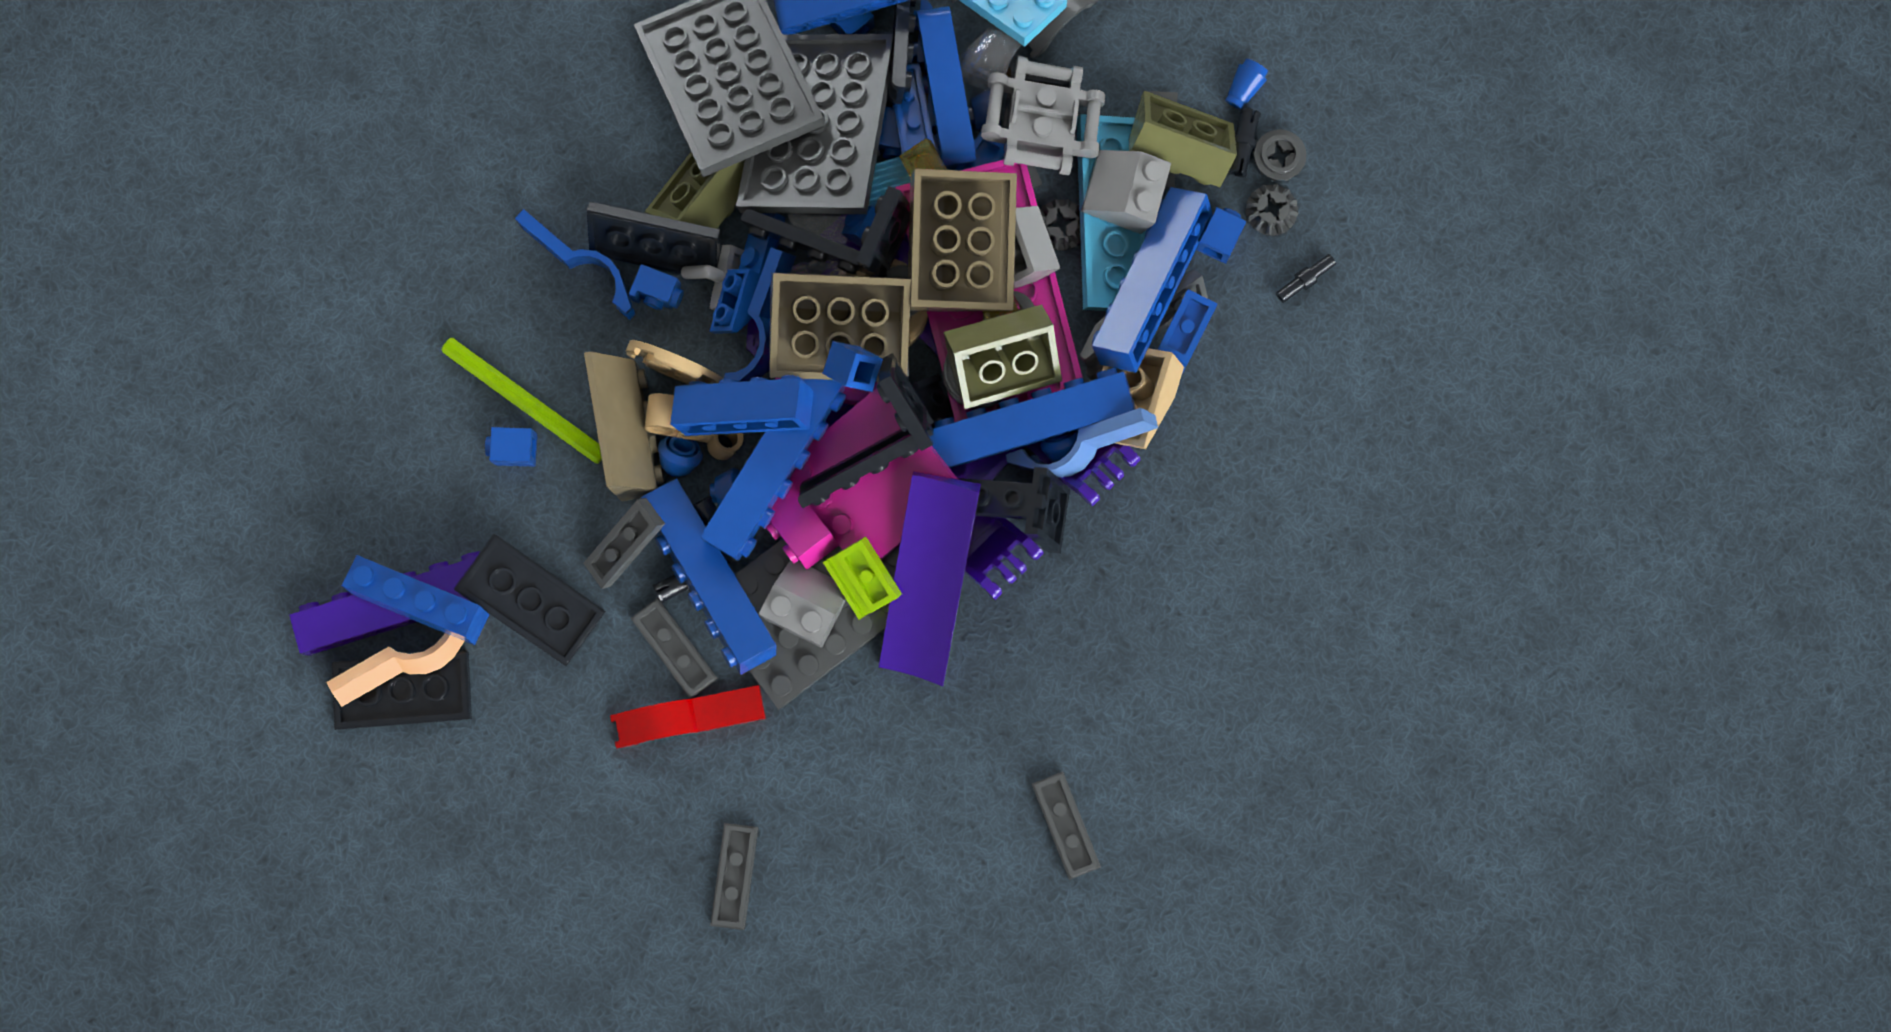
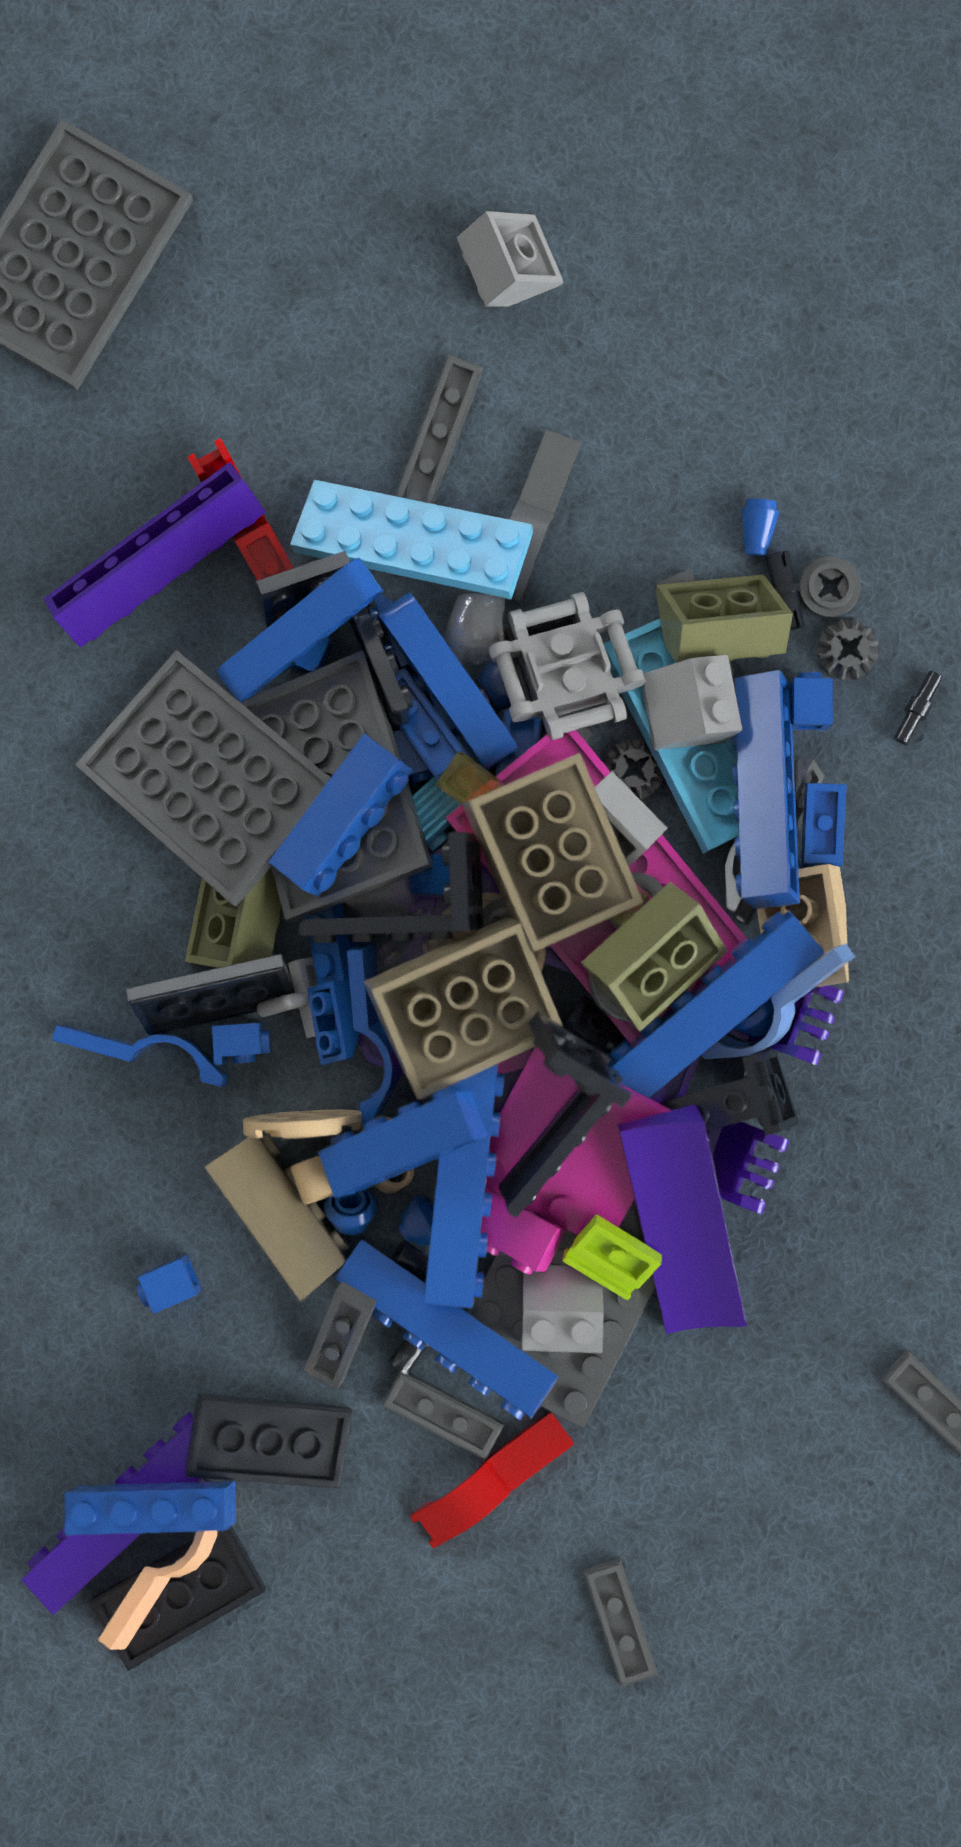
camera: 25 degrees left, 5 degrees up
(522, 399) = (151, 1225): lime axle -> none
(815, 144) = (341, 816): none -> blue brick
(852, 366) = (505, 1050): blue brick -> none

